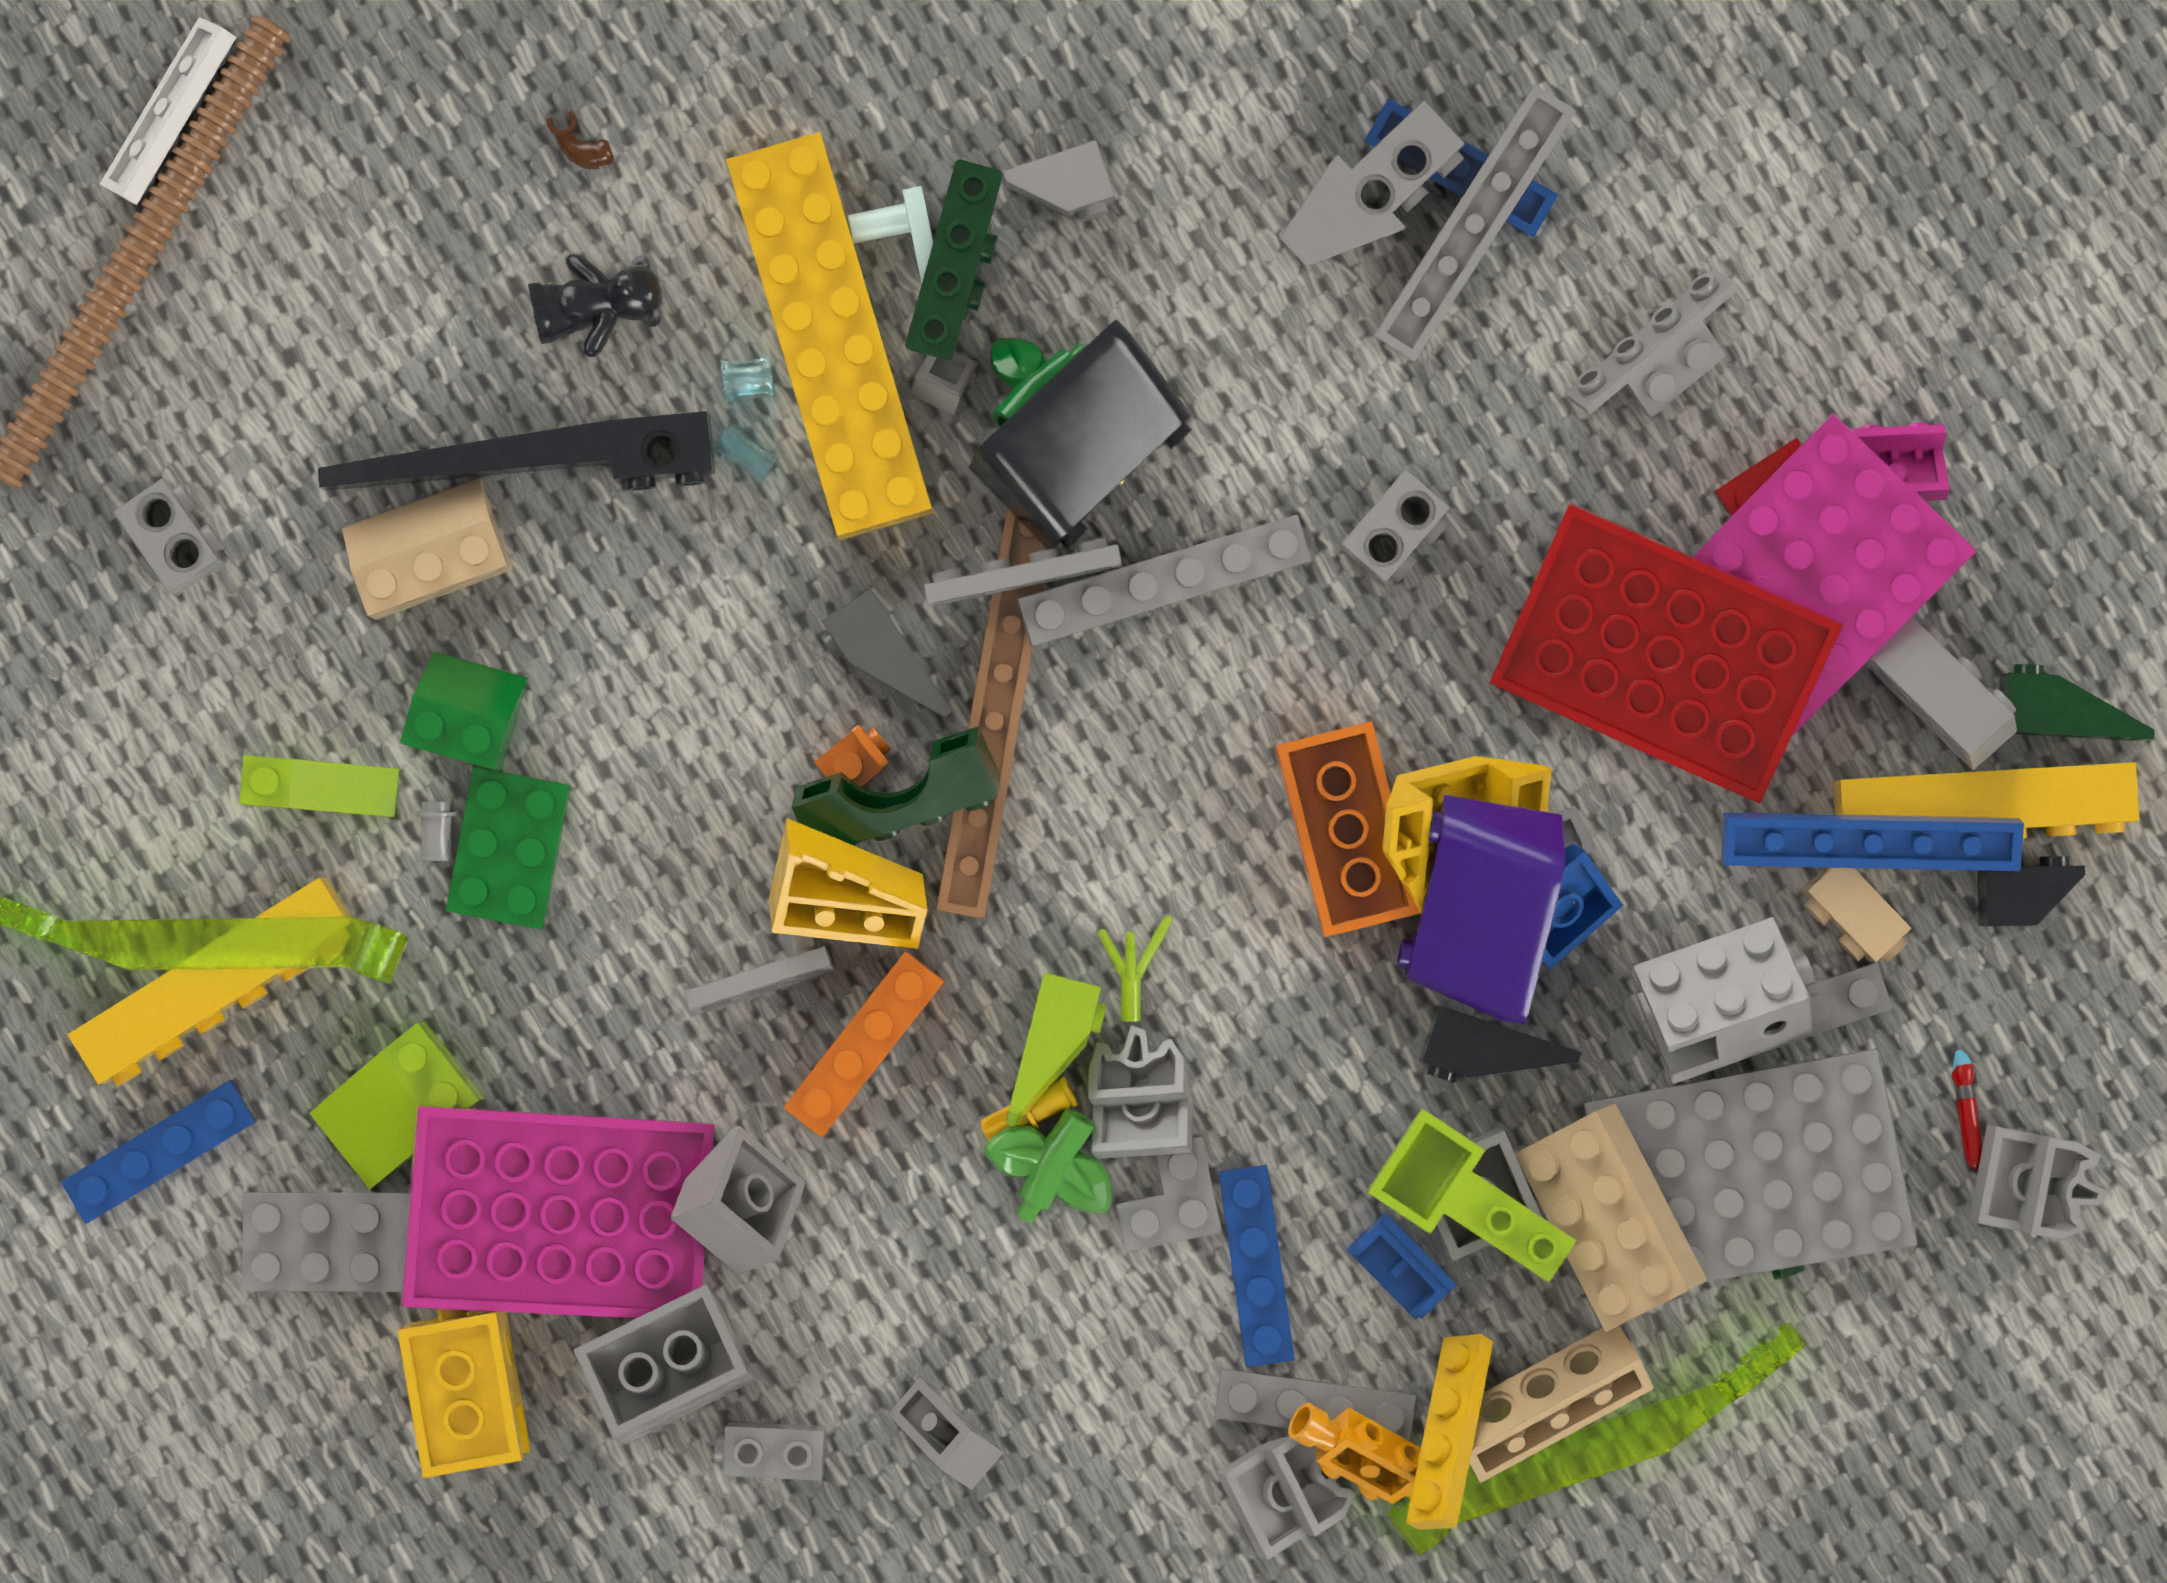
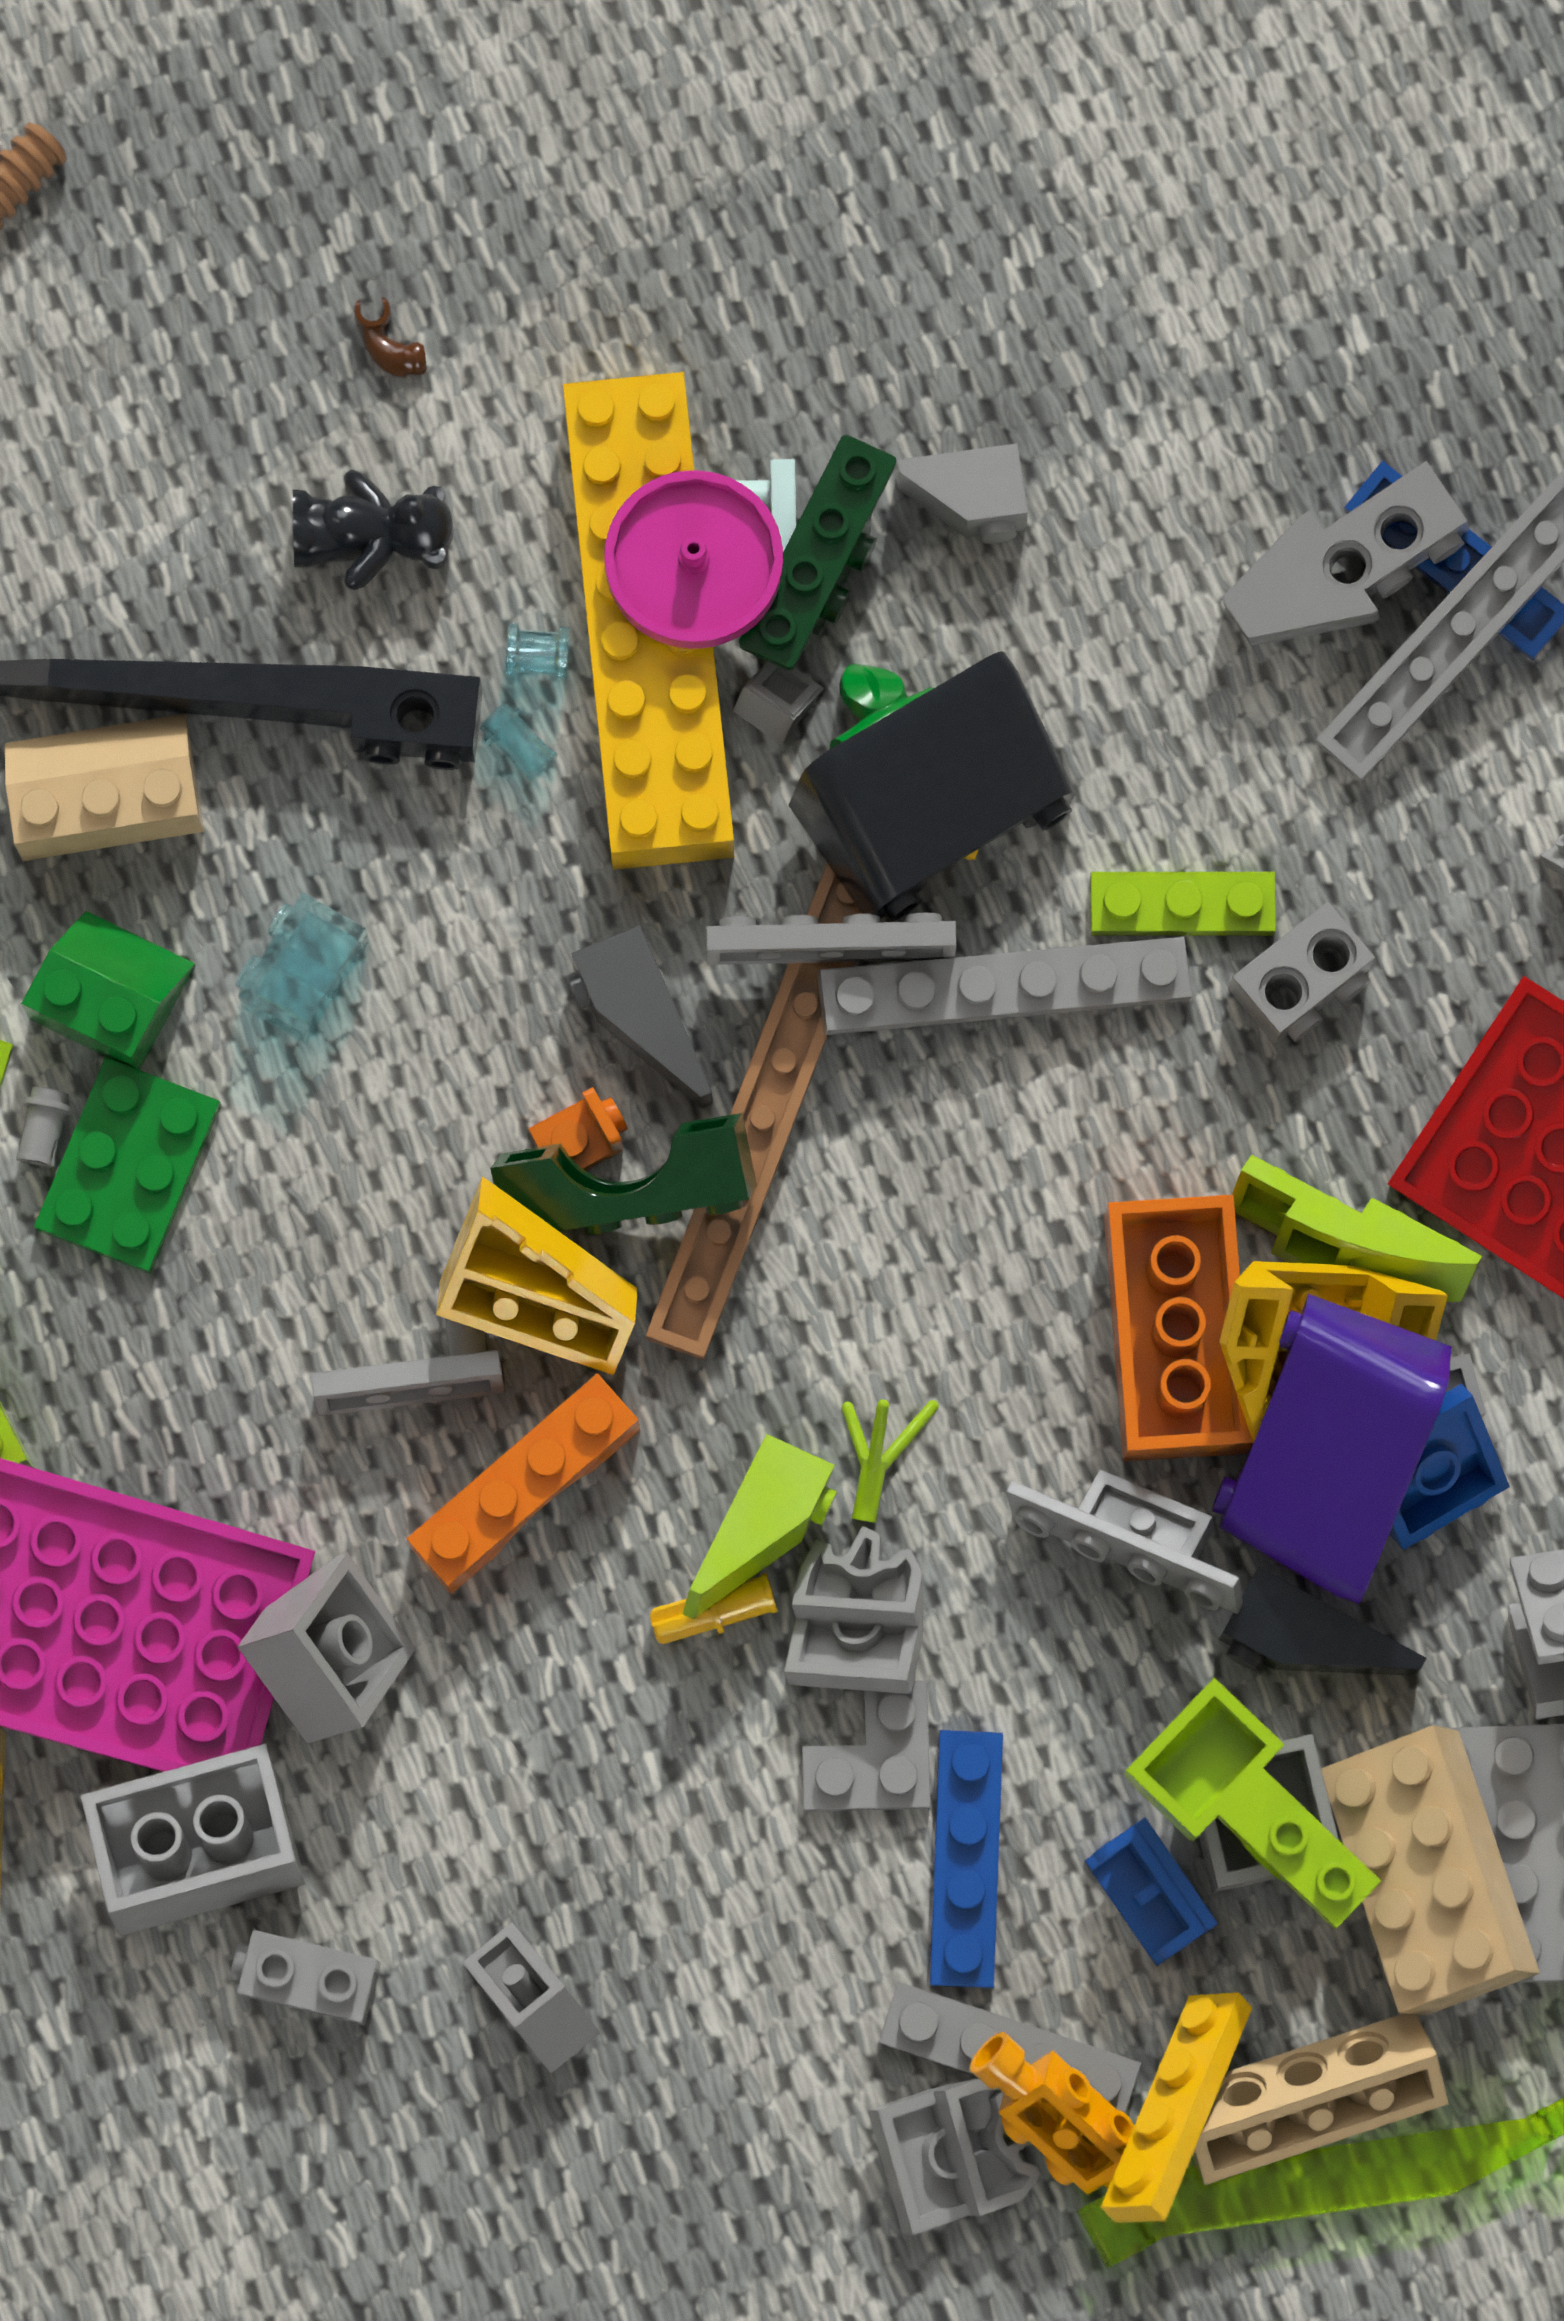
camera: 10 degrees right, 10 degrees down
(612, 667) = (301, 967): none -> clear light blue brick
(857, 288) = (693, 559): none -> dark pink piece
(1052, 1166) = (730, 1682): bright green plant -> none
(1291, 486) = (1182, 904): none -> lime plate
(1344, 992) = (1136, 1529): none -> light grey bracket
(1449, 734) = (1326, 1231): none -> lime slope

